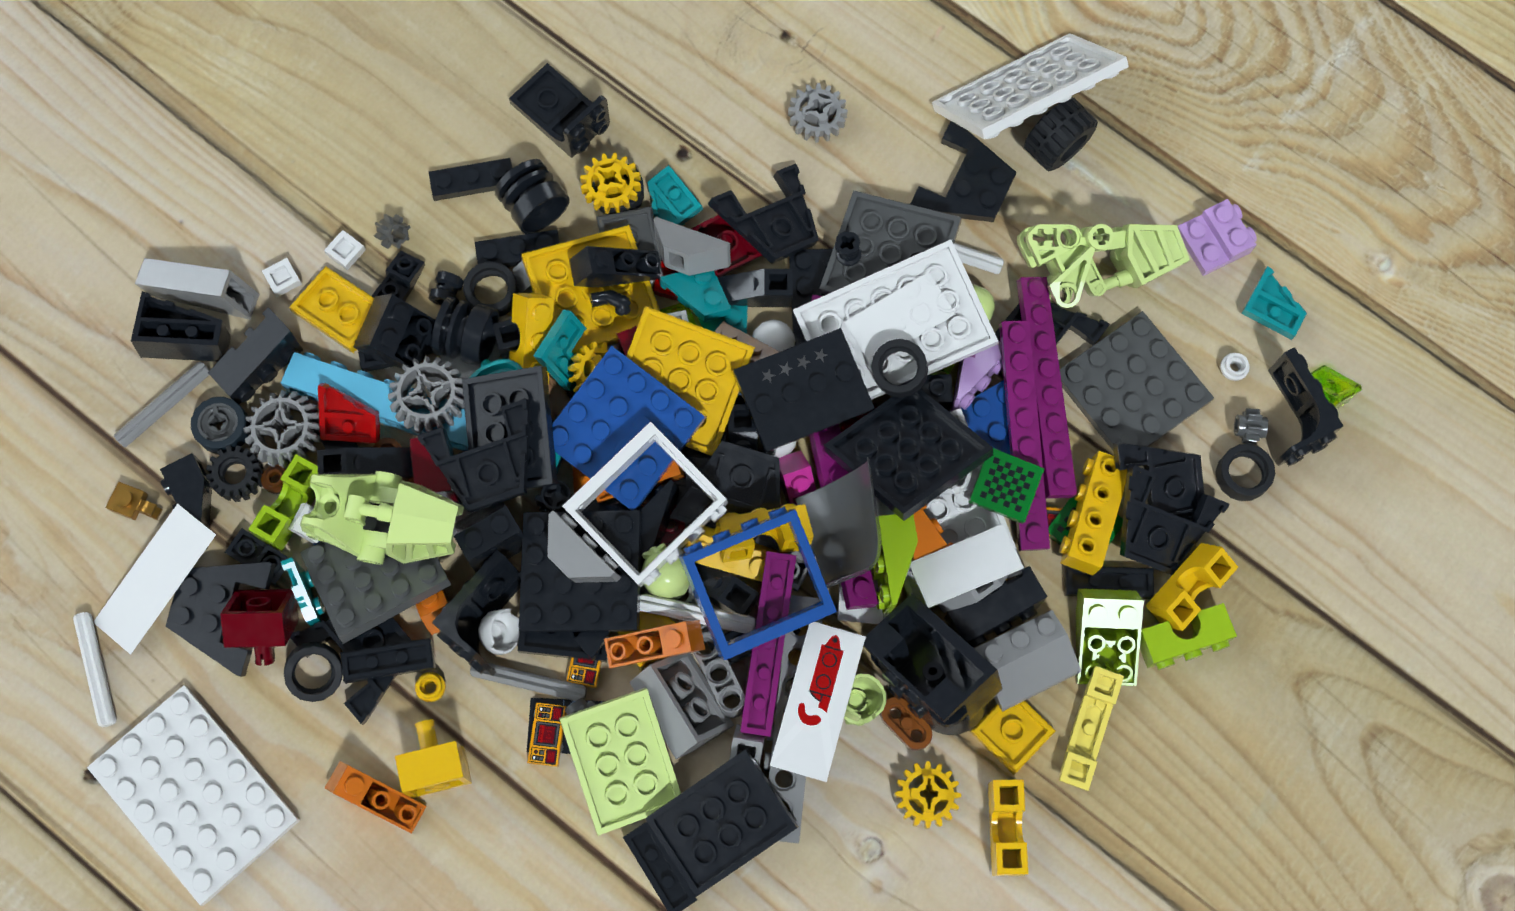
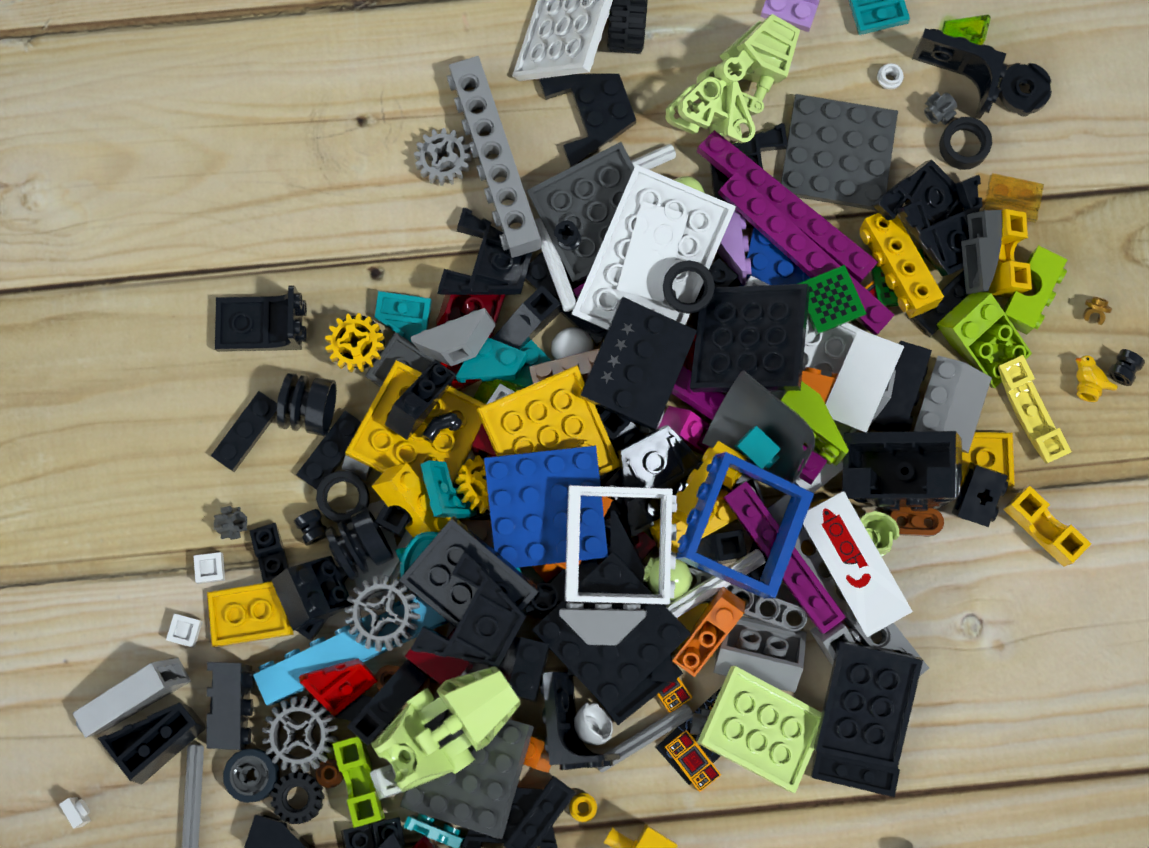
camera: 40 degrees left, 5 degrees up
(76, 331) = (76, 812): none -> white plate
(816, 268) = (556, 269): none -> white axle
(818, 223) = (471, 74): none -> light grey brick
(829, 538) = (758, 448): none -> teal brick
(941, 795) = (967, 546): yellow gear -> none
(989, 737) = (980, 480): none -> black brick
(1163, 751) = (1091, 380): none -> yellow animal
(1172, 562) = (982, 249): none -> dark grey slope
(1203, 769) = (1126, 367): none -> black wheel
(1228, 698) = (1099, 306): none -> pearl gold plate
(1245, 549) = (1014, 194): none -> clear yellow plate
(1349, 463) = (1021, 102): none -> black plate

